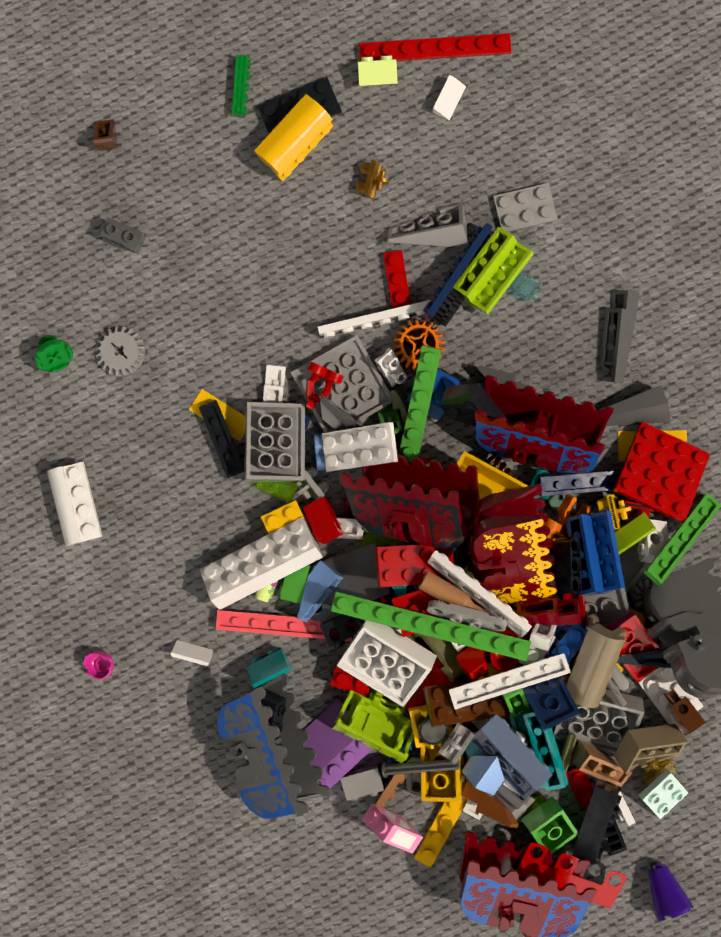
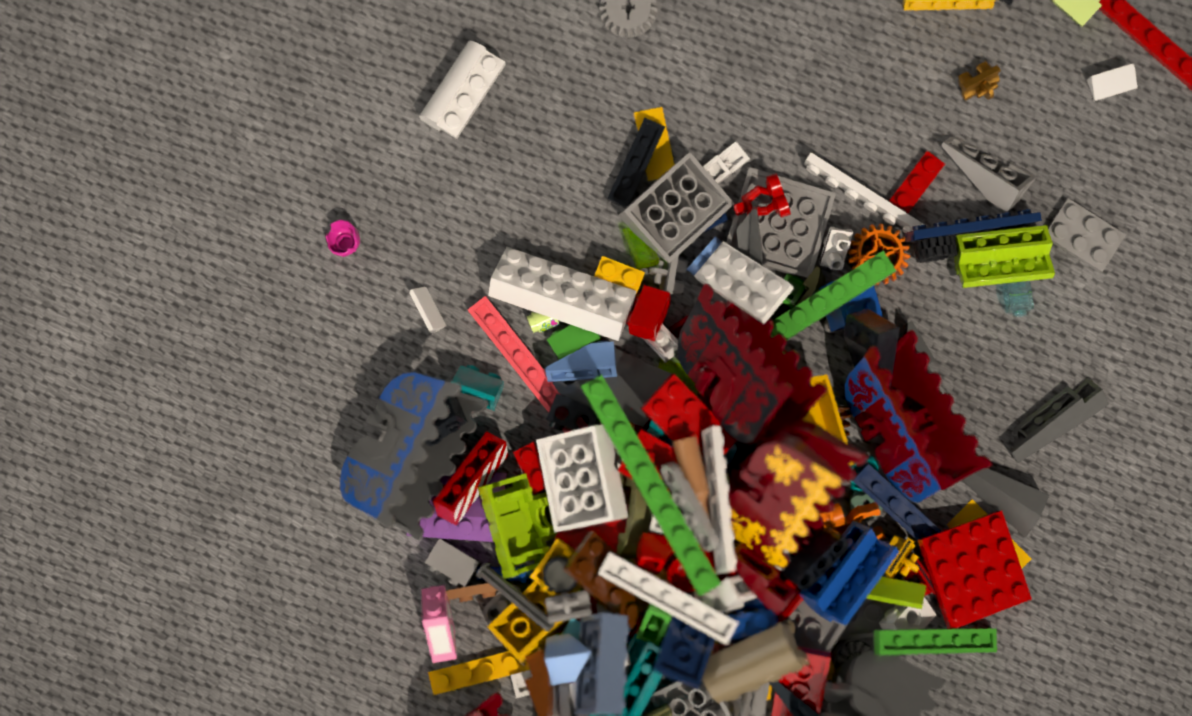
camera: 45 degrees right, 5 degrees down
(321, 721) = (473, 473): none -> red brick

